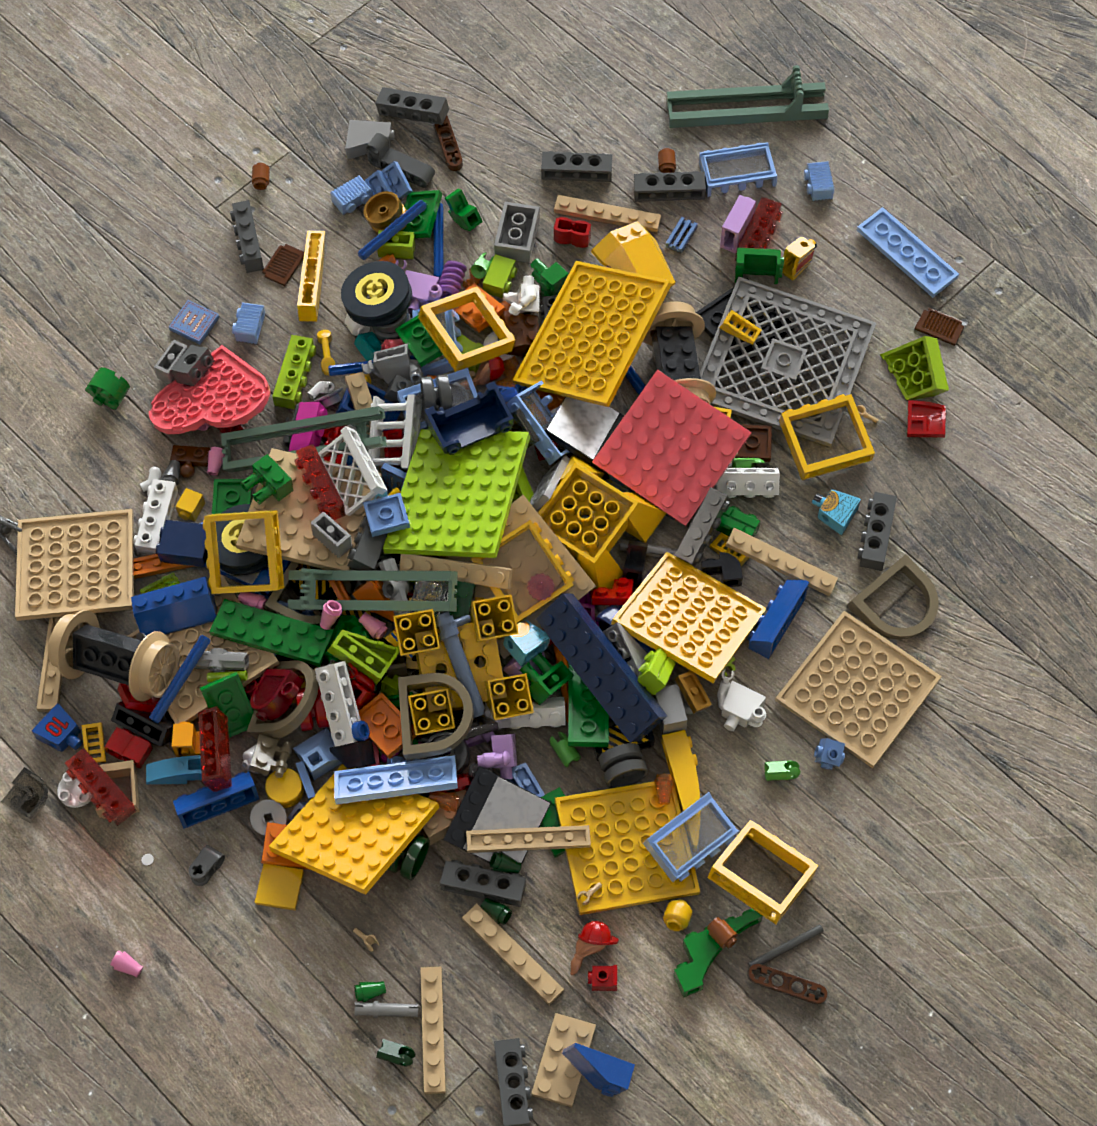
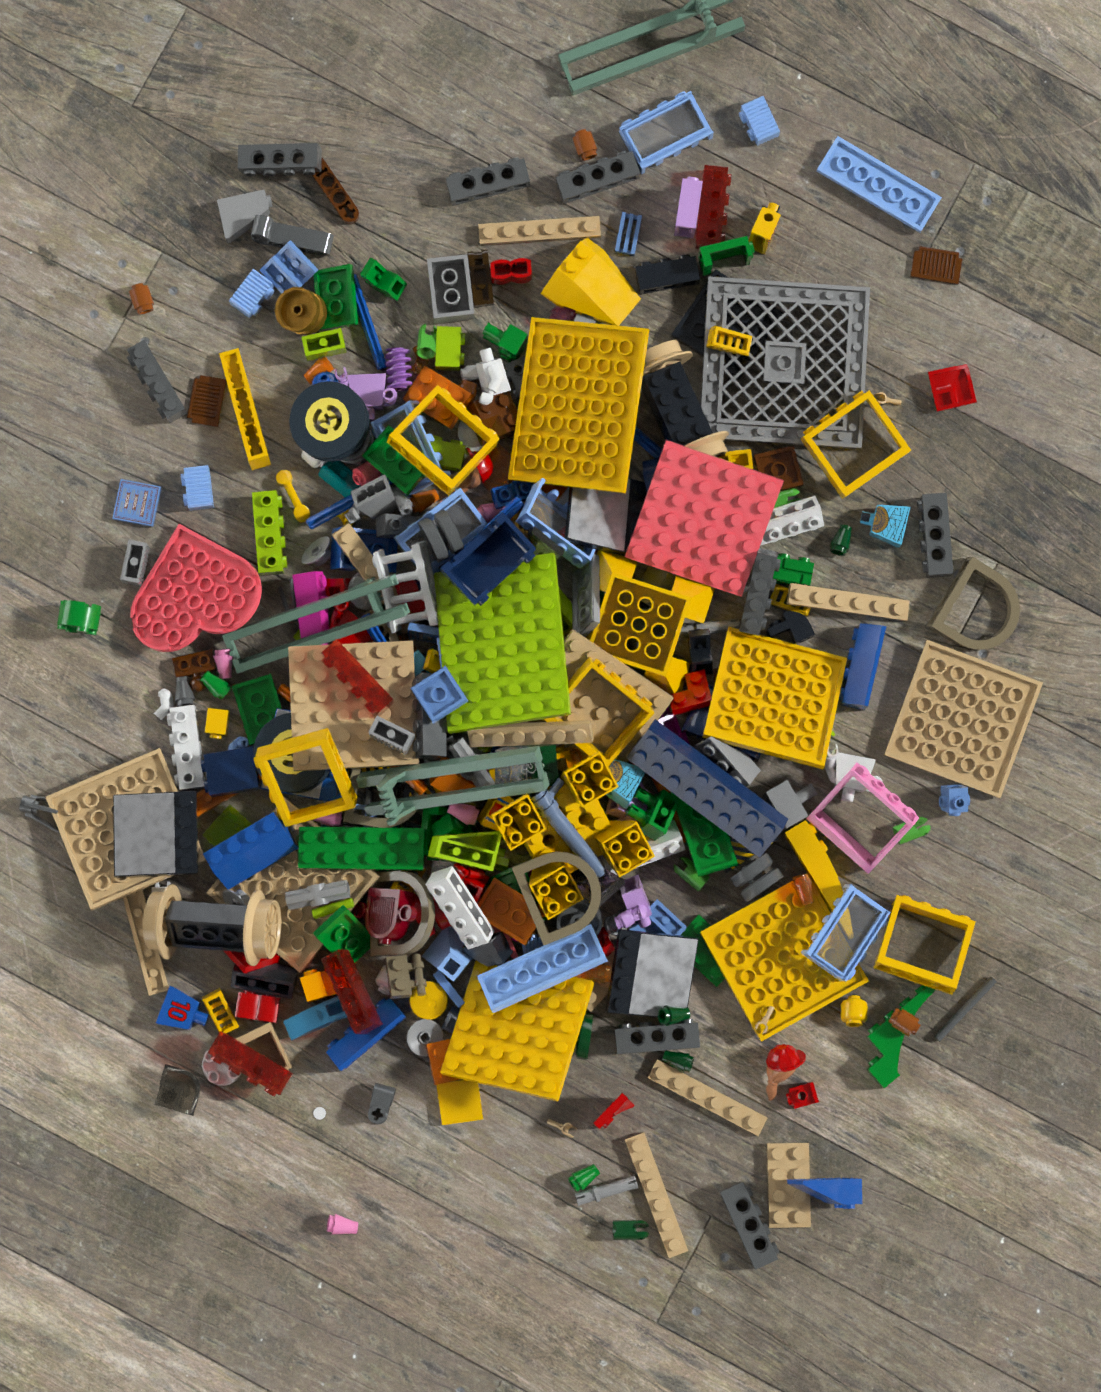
camera: 20 degrees left, 20 degrees up
(97, 572) = (155, 834): none -> flat silver plate
(179, 679) = (288, 928): blue axle -> none
(192, 365) = (157, 553): dark grey brick -> none
(201, 475) = (216, 685): none -> green cone
(272, 477) = (305, 686): green brick -> none
(319, 388) = (304, 541): white arm -> none
(330, 613) = (417, 816): bright pink cone -> none
(360, 731) = (489, 928): blue tile -> none
(365, 466) = (392, 641): white fence -> none
(391, 230) = (317, 334): blue axle -> none
(417, 933) = (619, 1105): none -> red plate
(528, 839) = (689, 986): tan plate -> none
(540, 586) = (622, 724): clear pink piece -> none
(544, 235) = (480, 279): none -> dark brown plate
(655, 671) = (763, 775): lime brick -> none
(693, 691) = (804, 782): pearl gold plate -> none
(704, 271) = (667, 274): none -> black brick
(711, 755) = (847, 842): none -> bright pink window
(788, 980) = (977, 1043): reddish brown beam -> none
(790, 513) = (841, 541): none -> dark green cone
(918, 368) = (928, 330): lime wedge -> none

